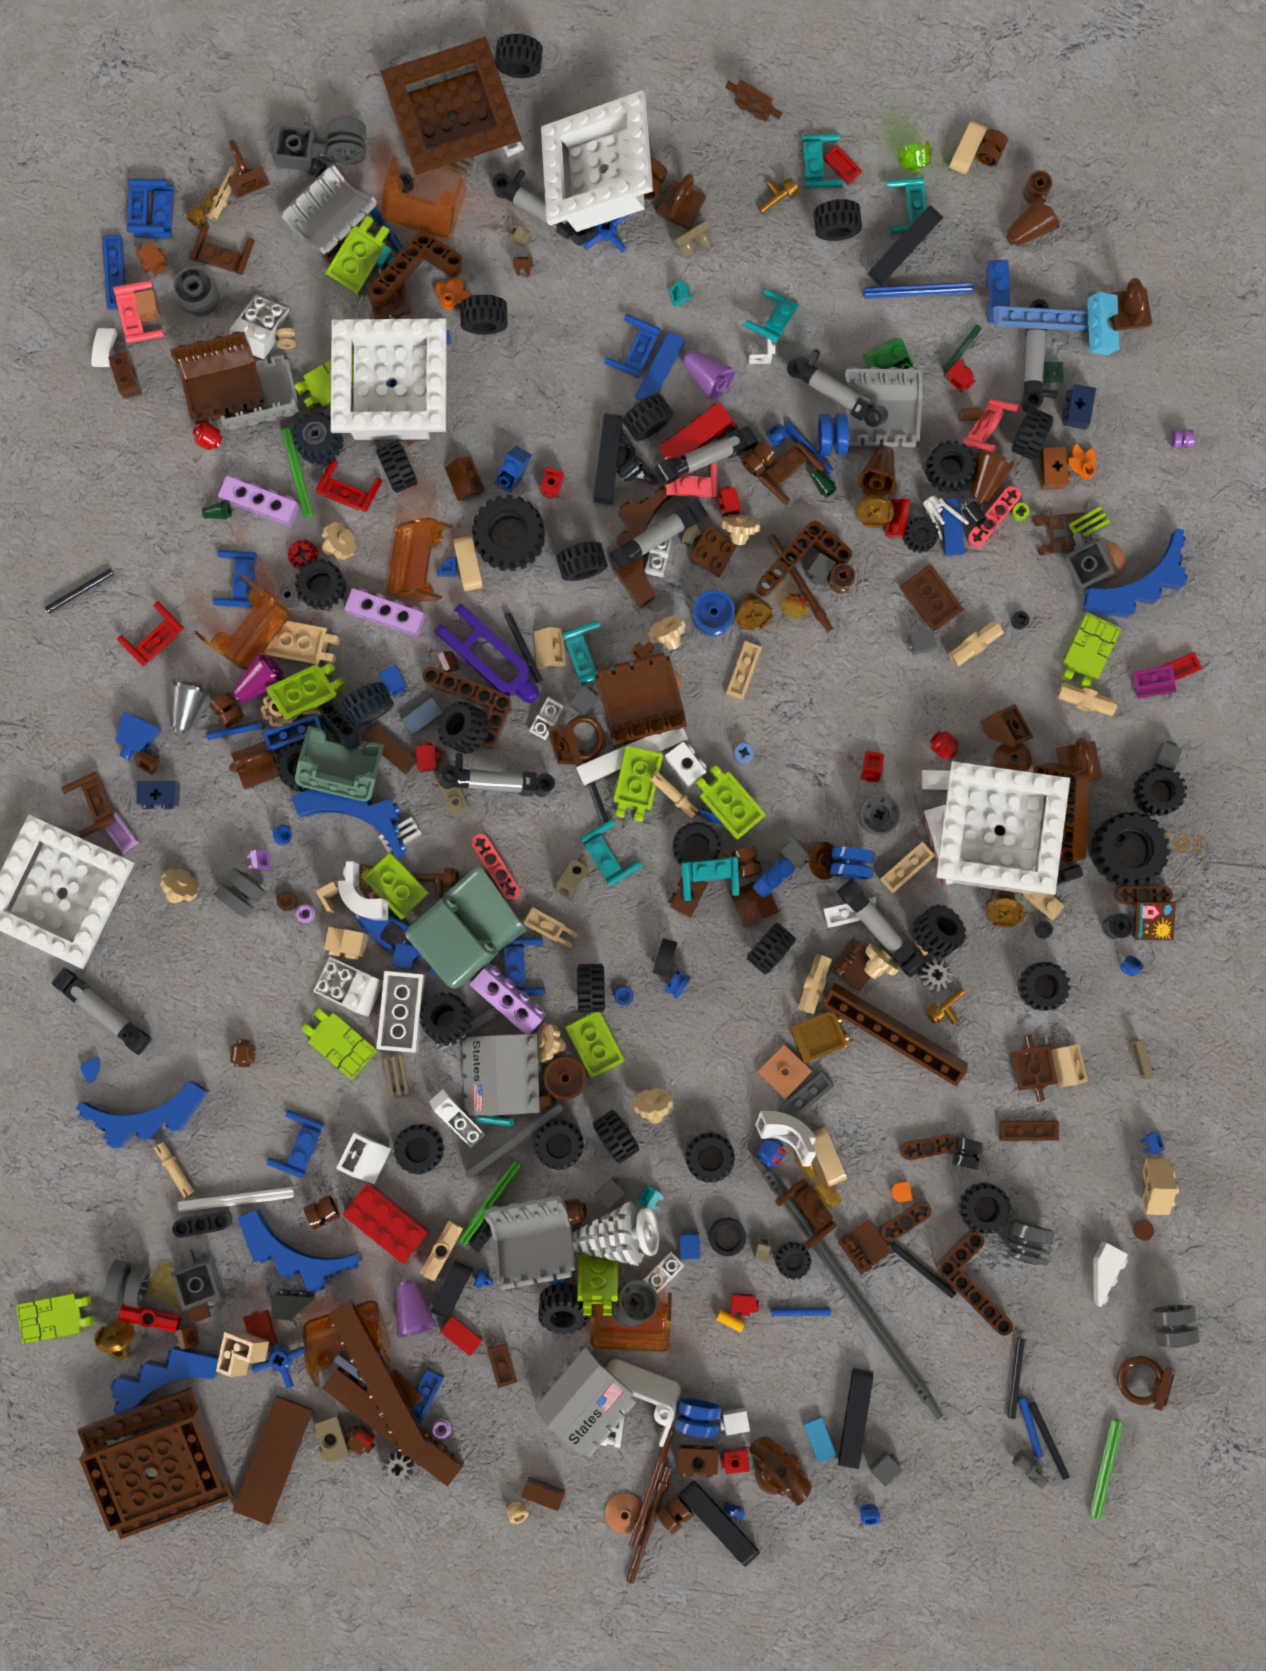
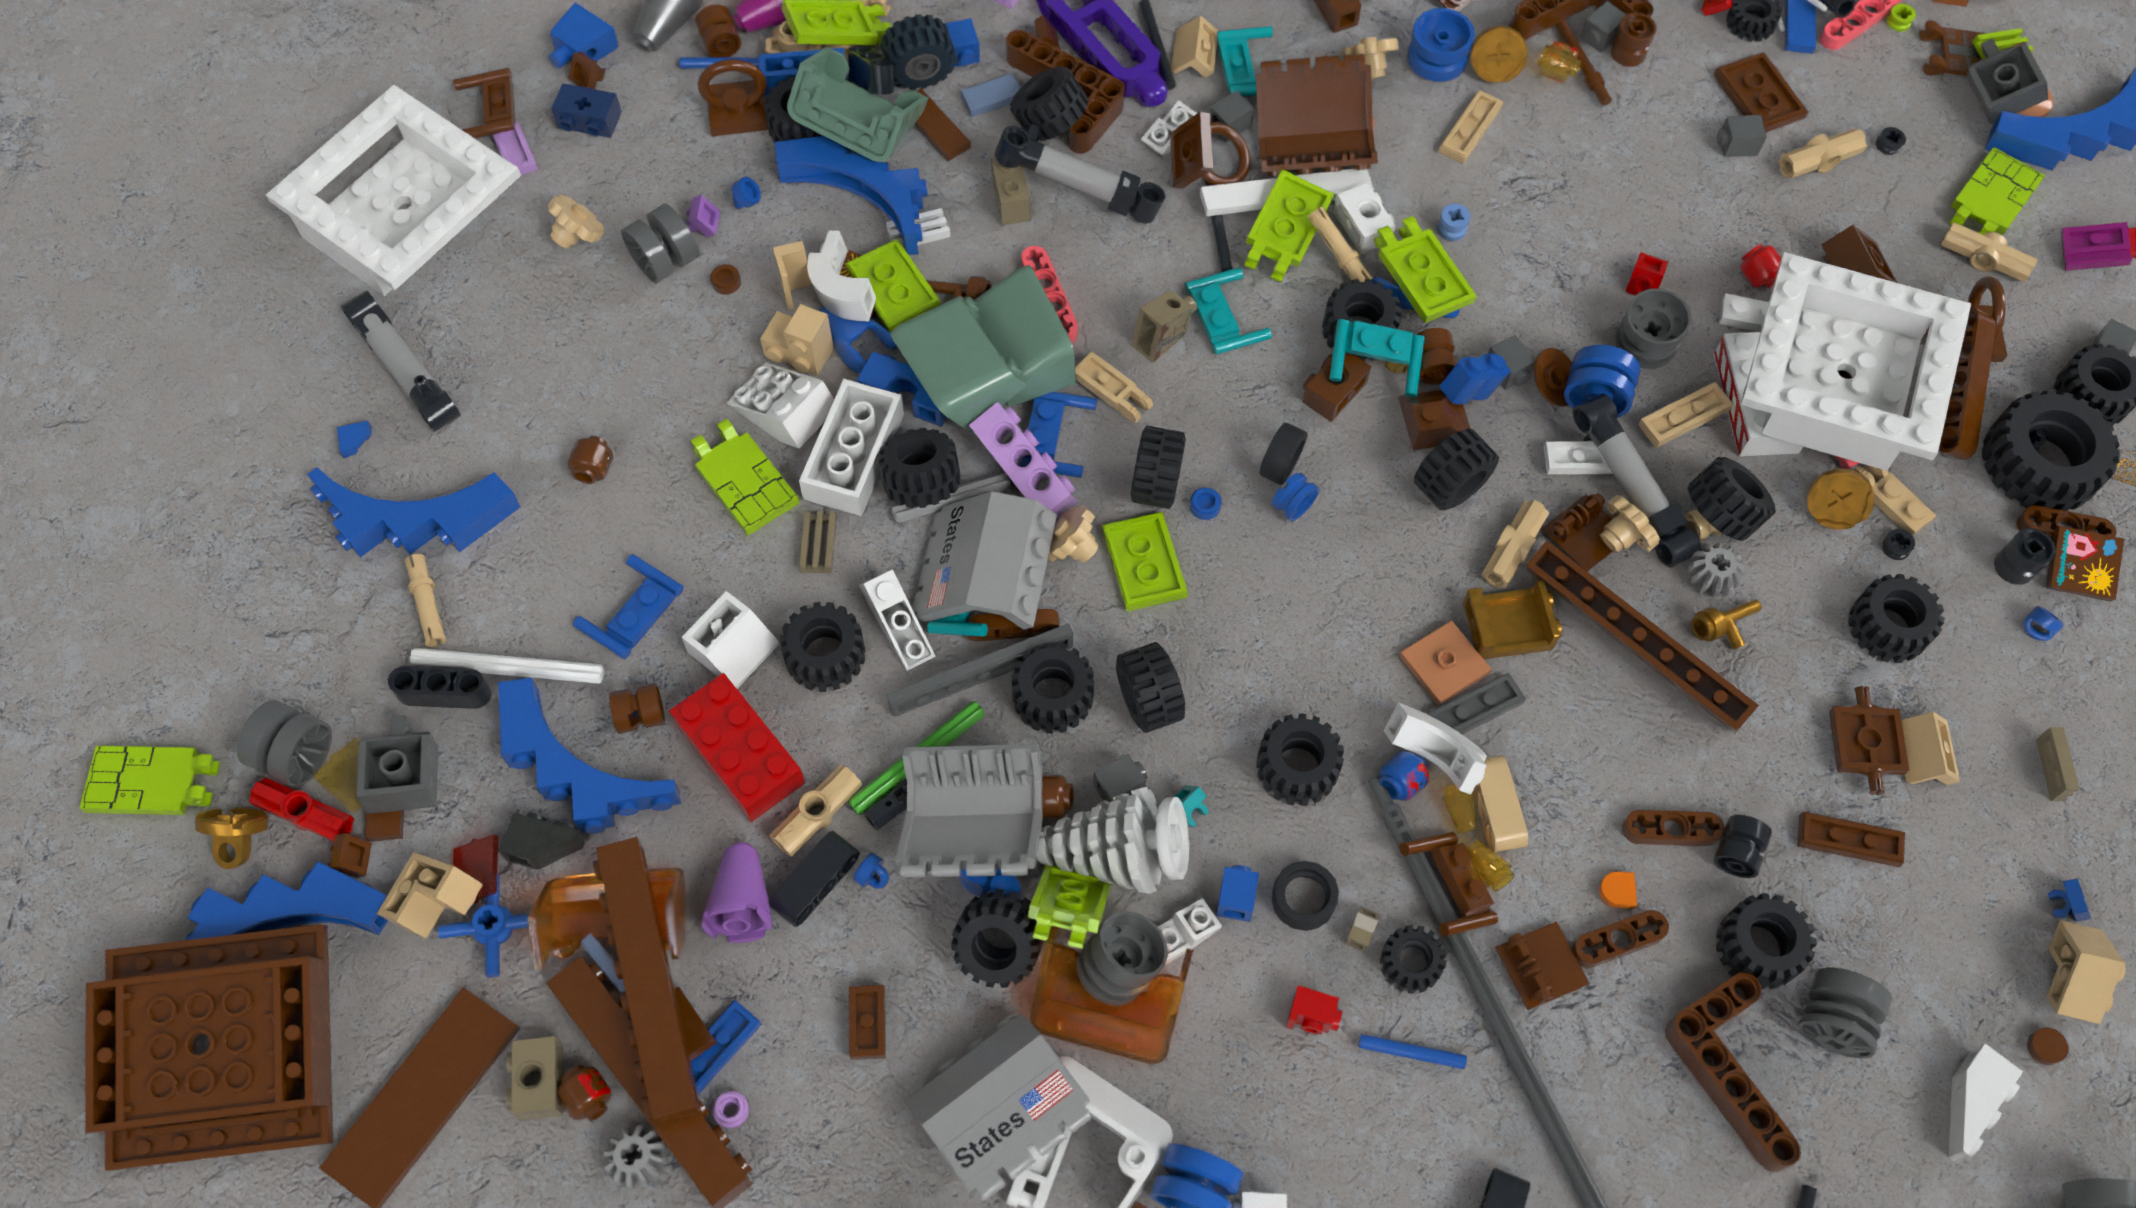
camera: 10 degrees right, 20 degrees down
(299, 913) = (745, 292): lavender plate -> none
(427, 757) = (983, 139): red brick -> none
(461, 1335) = (810, 959): red tile -> none
(556, 1085) = (1087, 590): reddish brown wheel -> none
(653, 1104) = (1220, 662): tan plant -> none
(730, 1321) = (1284, 1037): yellow axle -> none
(923, 1270) = (1641, 1029): black bar -> none
(1070, 874) = (1939, 475): black bar -> none

